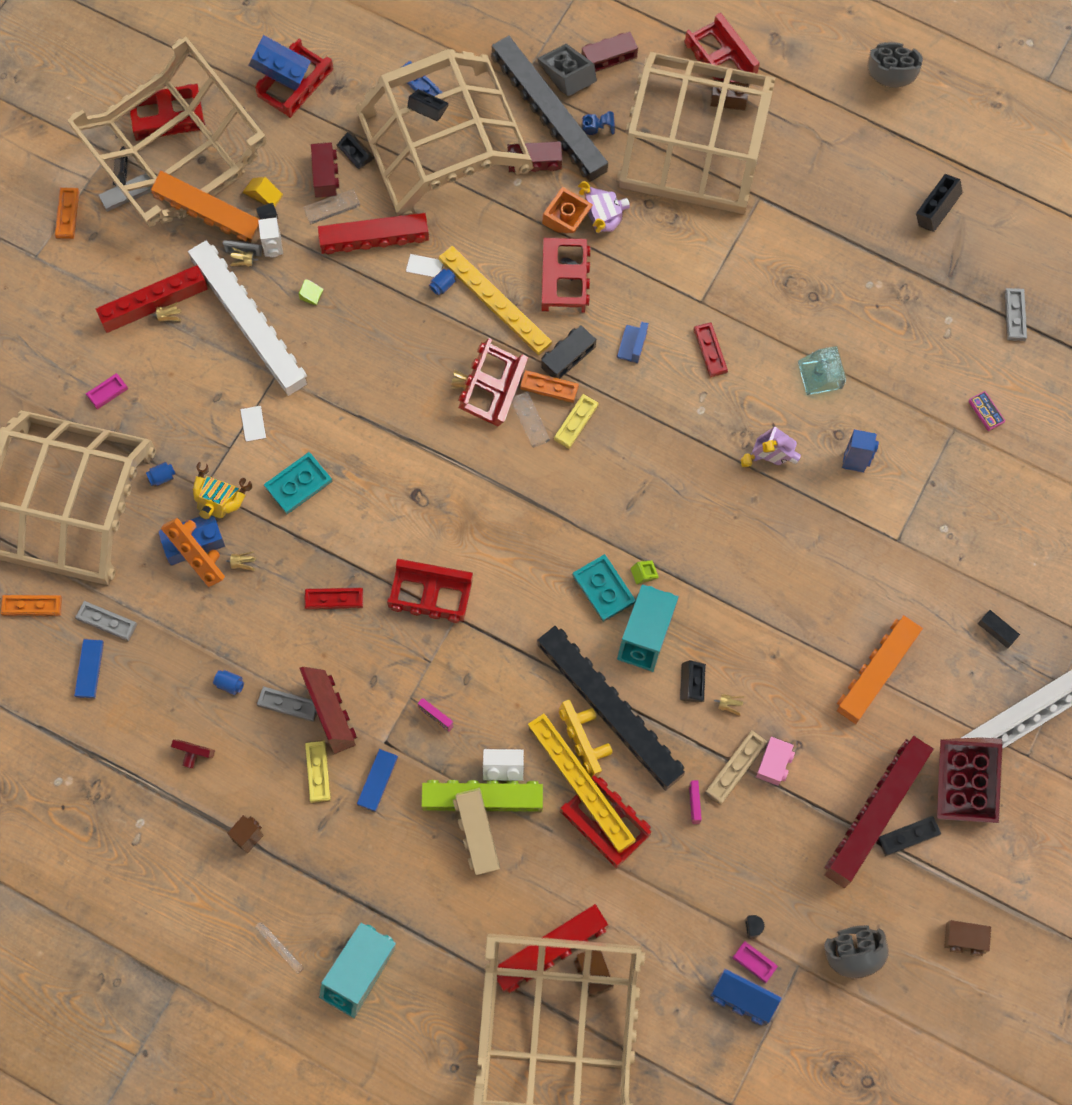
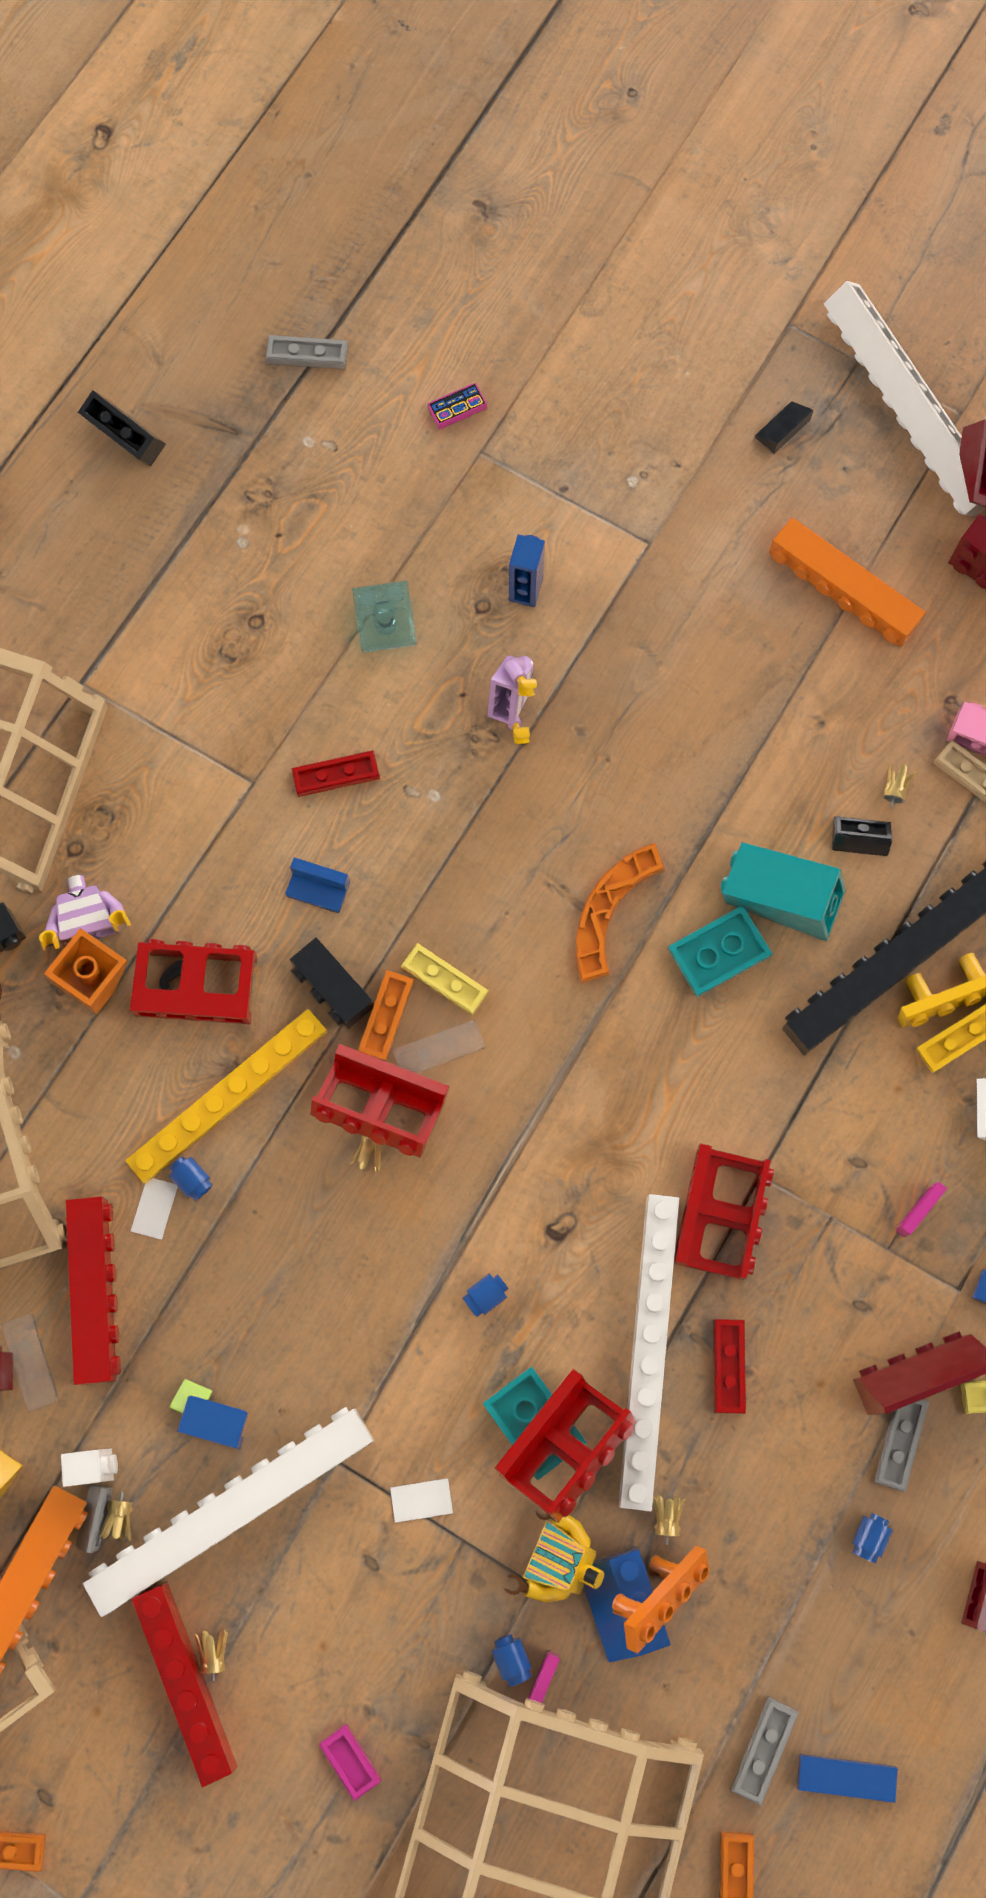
camera: 85 degrees left, 5 degrees up
(148, 491) = (544, 1676): none -> dark pink tile
(266, 211) = (36, 1475): black brick -> none
(290, 486) = (551, 1435): none -> red window
(296, 303) = (213, 1422): none -> blue panel
(340, 546) = (649, 1352): none -> white brick
(375, 451) = (485, 1294): none -> blue brick
(632, 515) = (602, 903): none -> orange tile
(644, 572) = (693, 893): lime slope -> none

